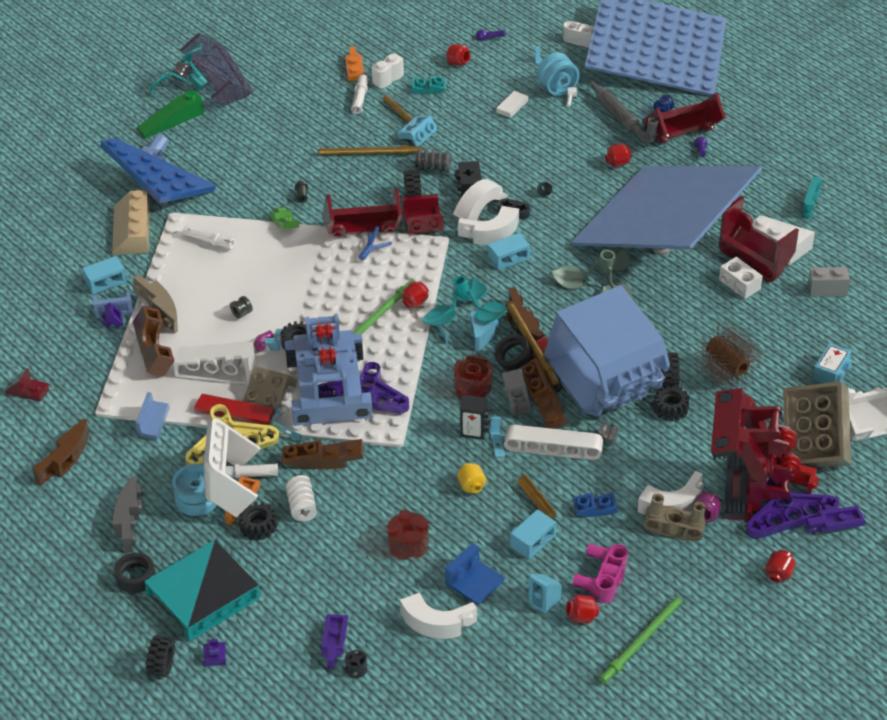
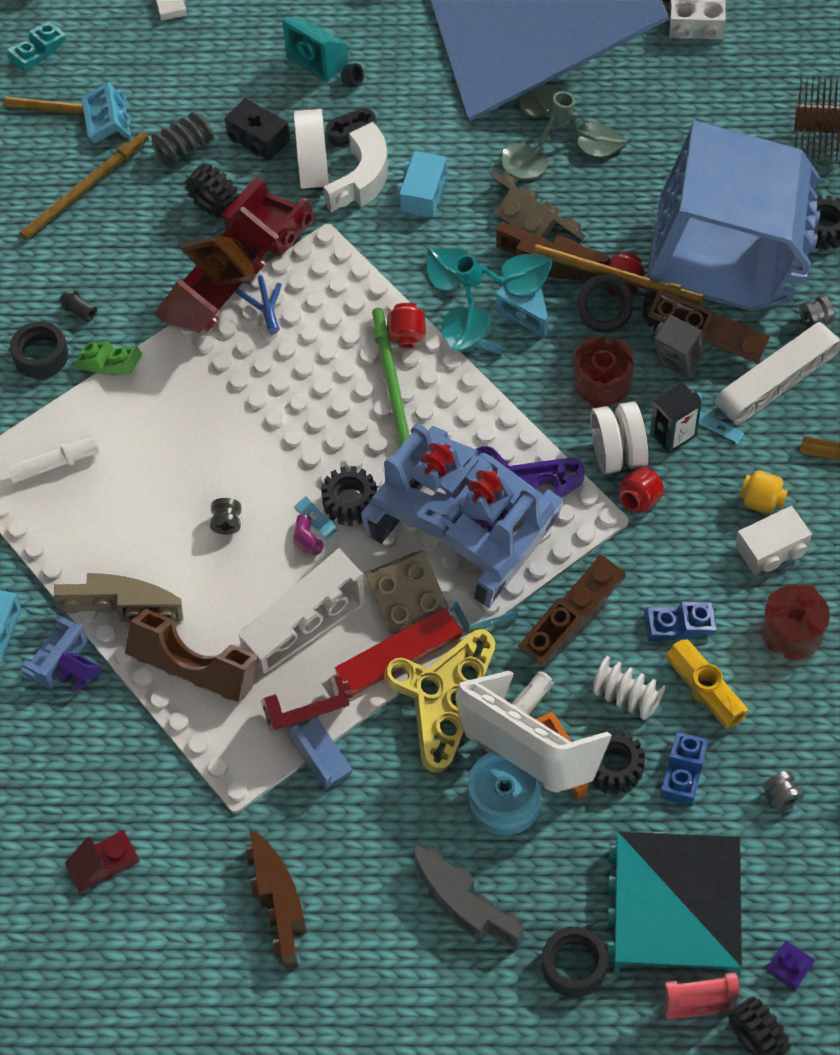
camera: 45 degrees left, 15 degrees up
(154, 621) = (700, 997): none -> coral plate
(180, 399) = (277, 719): none -> dark red panel
(261, 187) = (35, 332): none -> black tyre
(285, 549) = (684, 768): none -> blue slope
(306, 590) = (783, 791): none -> flat silver wheel
(336, 526) = (717, 698): none -> yellow piece
(363, 498) = (679, 623): none -> blue slope
(373, 208) = (220, 259): none -> reddish brown slope
(421, 435) = (641, 490): none -> red head
(436, 404) = (619, 437): none -> white wheel
(448, 500) = (773, 540): none -> white brick
(540, 296) = (523, 210): none -> dark tan bracket
(541, 163) = (314, 48): none -> teal slope

